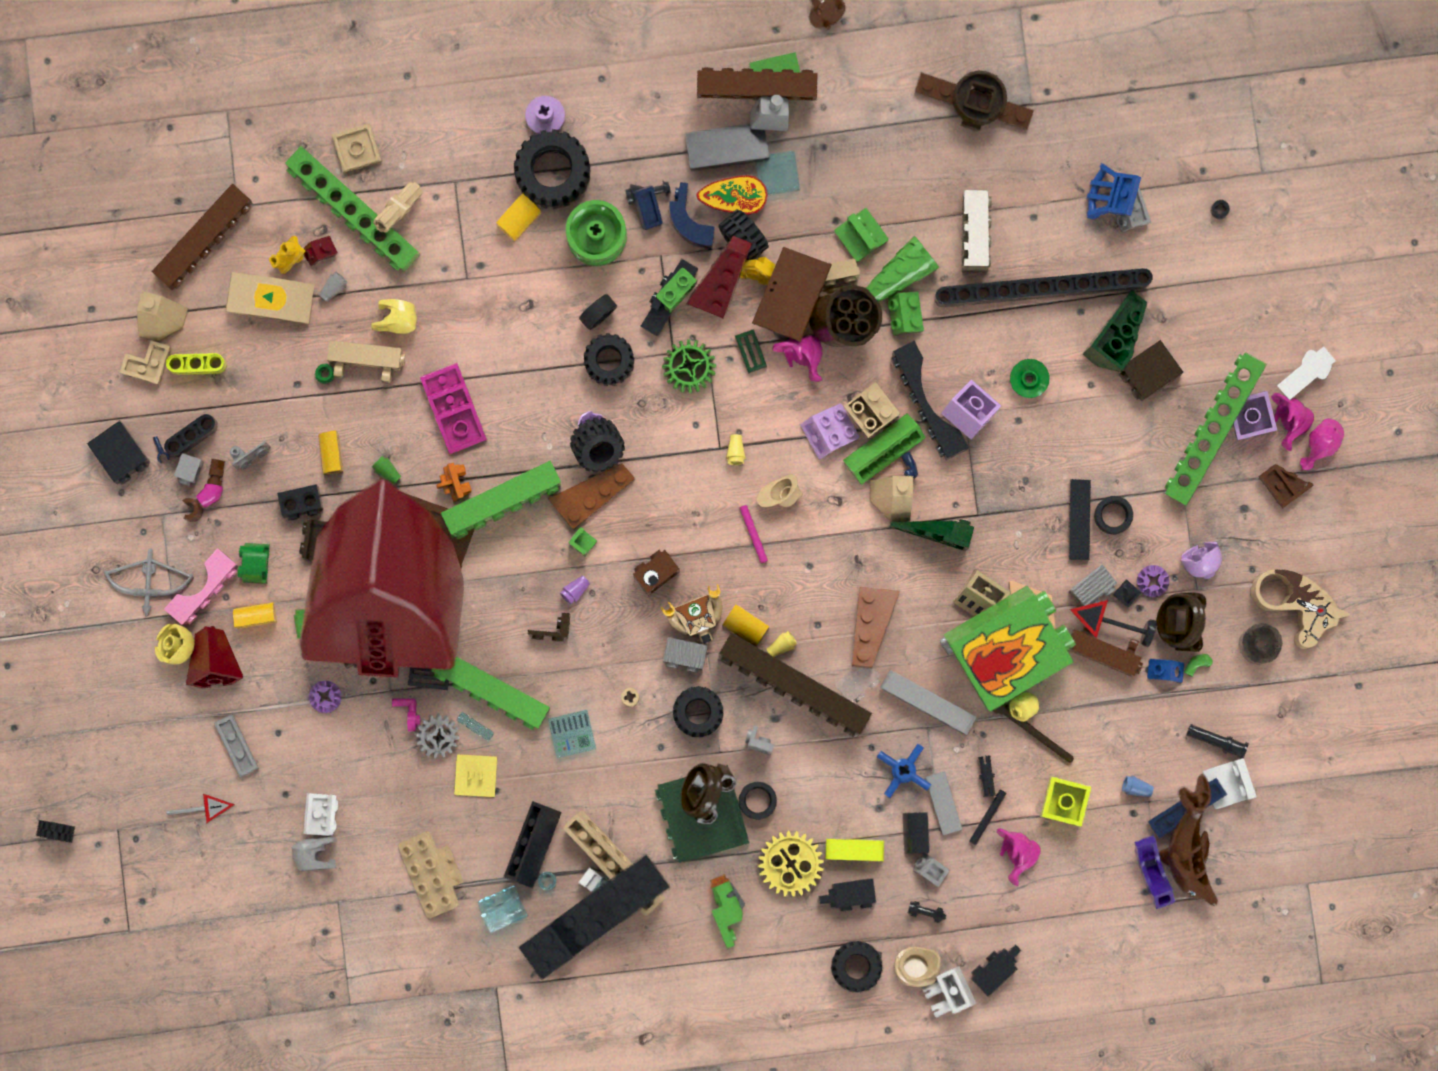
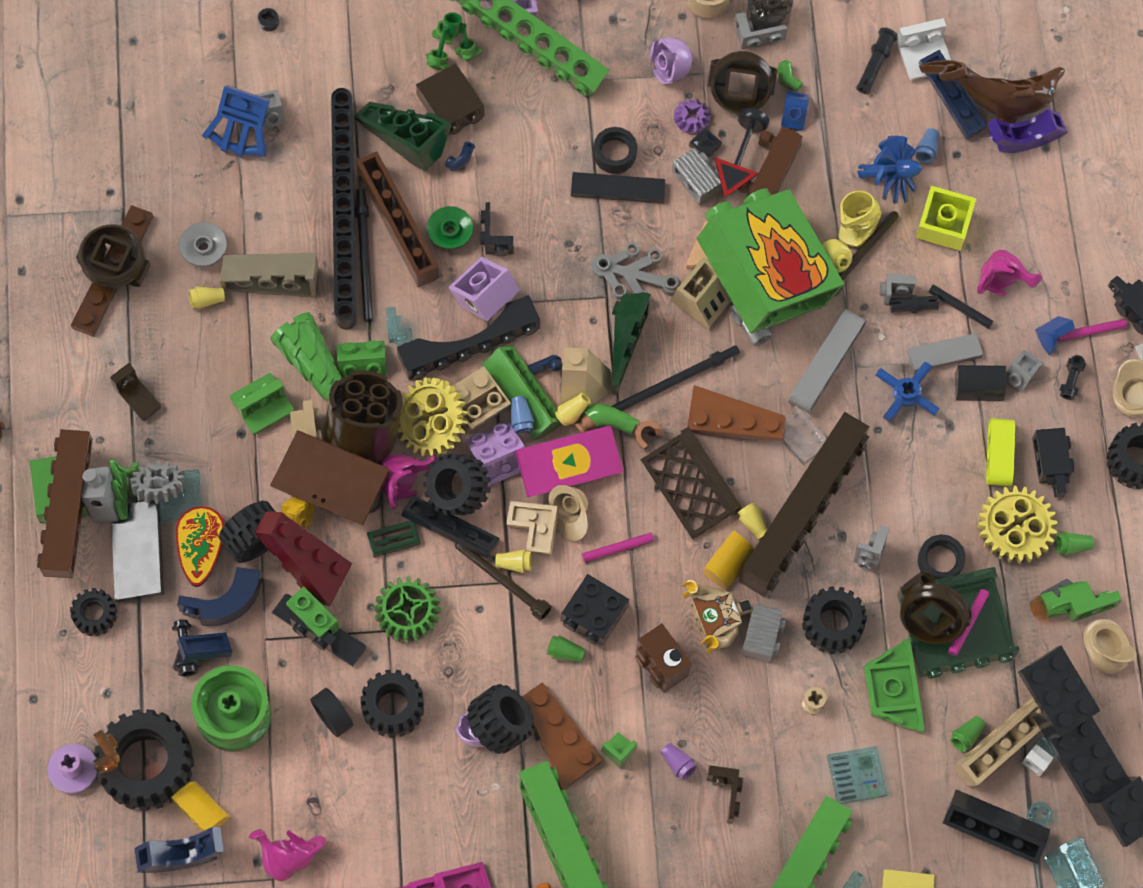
camera: 90 degrees left, 15 degrees down
(480, 203) = (180, 853): none -> dark blue arch
(483, 287) = (286, 856): none -> dark pink piece
(552, 139) = (108, 746): none -> clear orange bracket
(609, 822) = (967, 734): none -> bright green cone
(645, 762) = (894, 688): none -> bright green wing
(662, 495) = (564, 649): none -> bright green cone
(673, 105) = (99, 625): none -> black tyre
(689, 937) = (1108, 646): none -> tan piece
(695, 516) = (594, 610): none -> black brick
(697, 471) = (539, 607): none -> dark brown piece
(711, 827) = (975, 609): none -> dark pink bar
(762, 396) = (450, 527): none -> black tile
(769, 469) = (540, 521): none -> tan plate
(775, 127) = (119, 486): none -> bright green piece
(777, 911) = (1072, 543): none -> bright green cone
(781, 157) = (157, 482): none -> light grey gear
(789, 386) = (473, 484): none -> black tyre
(822, 489) = (569, 461): none -> dark pink slope
(823, 605) = (708, 471): none -> dark brown fence
(859, 447) = (521, 415): none -> medium blue cone
(862, 131) = (134, 392): none -> dark brown bracket
(865, 516) = (604, 415): none -> piece
(867, 367) = (424, 397): none -> light yellow gear
(867, 488) = (571, 410): none -> light yellow cone
(924, 609) = (715, 359): none -> black bar
(937, 337) = (396, 333): none -> clear light blue bracket
(953, 180) = (205, 296): none -> light yellow cone
(968, 896) = (1052, 331): none -> blue tile
(973, 929) = (1094, 329): none -> dark pink bar
(999, 534) = (632, 272): none -> light grey plant
(1002, 763) = (896, 283): none -> light grey bracket
(1004, 164) = (200, 235): none -> light grey dish
(1015, 421) = (495, 245): none -> black bracket
(1033, 333) = (397, 219): none -> reddish brown brick
(1040, 303) = (362, 214): none -> black bar
(1061, 727) = (859, 218): none -> light yellow helmet
(1099, 387) = (464, 157): none -> dark blue arm
(1108, 755) = (894, 167): none -> blue piece
(1215, 365) = (445, 31): none -> plant
(1240, 624) = (754, 39): none -> light grey bracket

